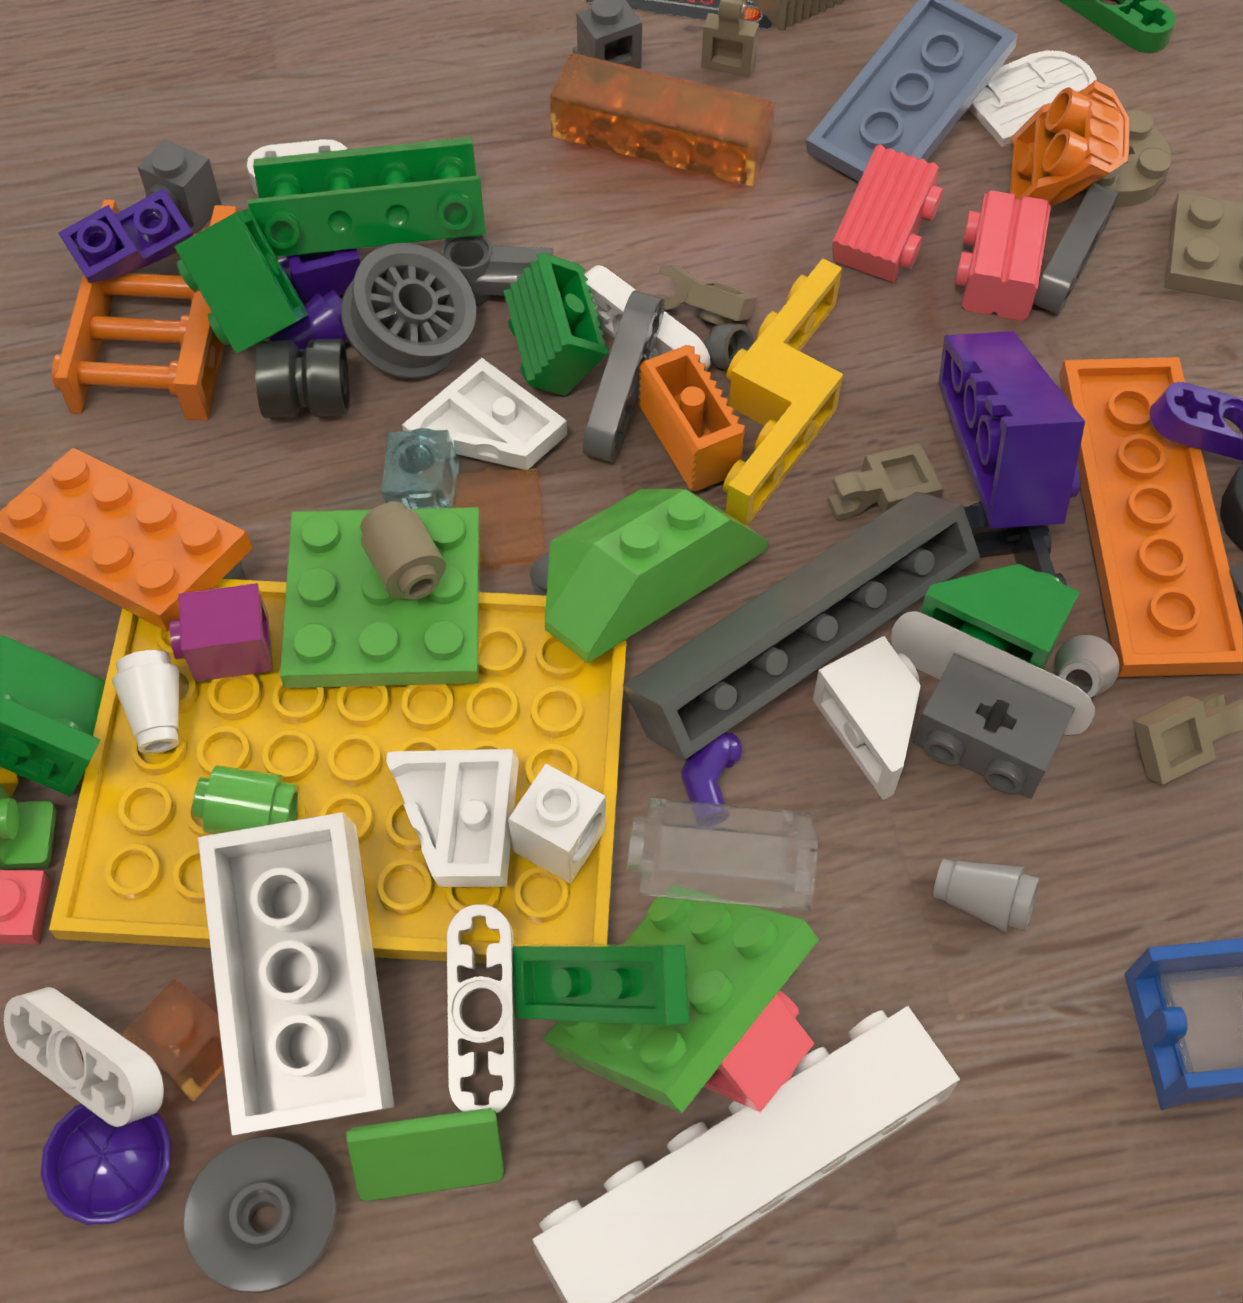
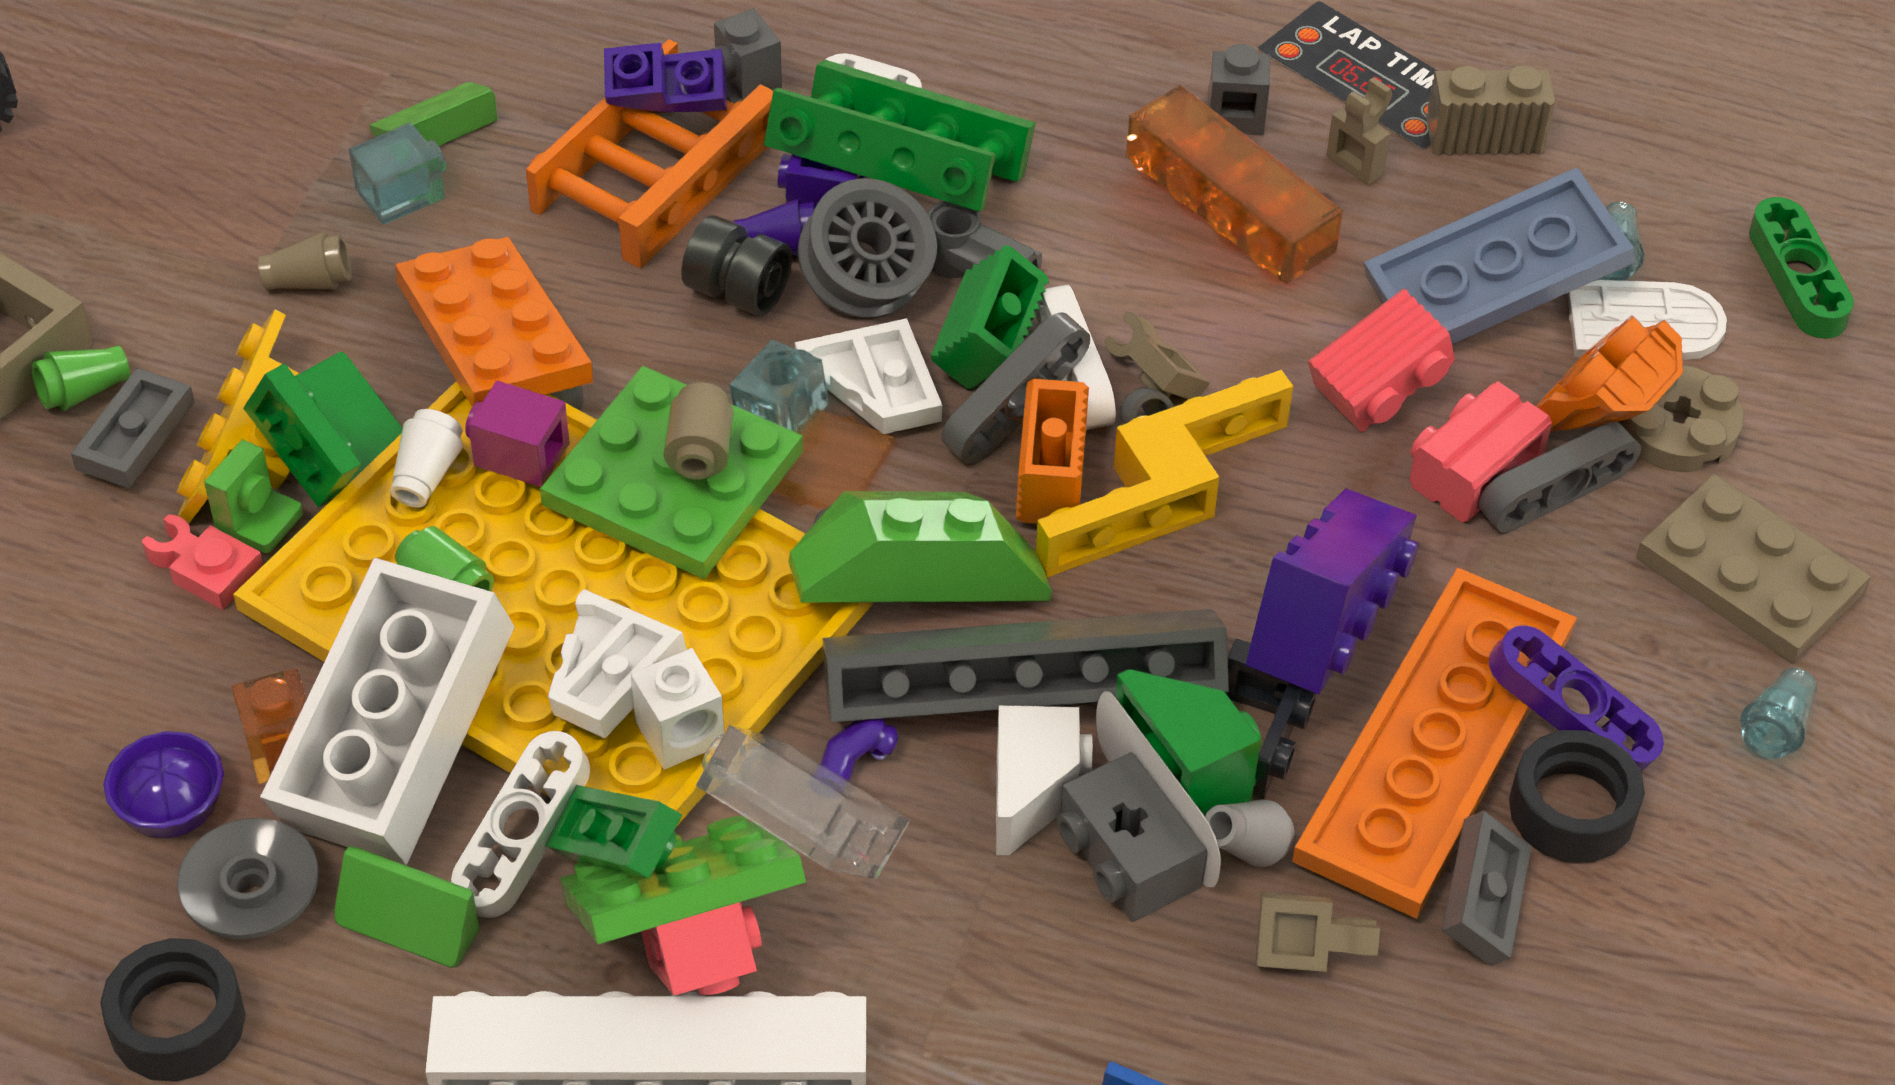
camera: 30 degrees right, 10 degrees down
(116, 1075) = (194, 693): white beam -> none
(239, 281) = (727, 154): green brick -> none
(884, 480) = (1206, 587): dark tan plate -> none
(988, 892) = (1025, 968): light grey cone -> none

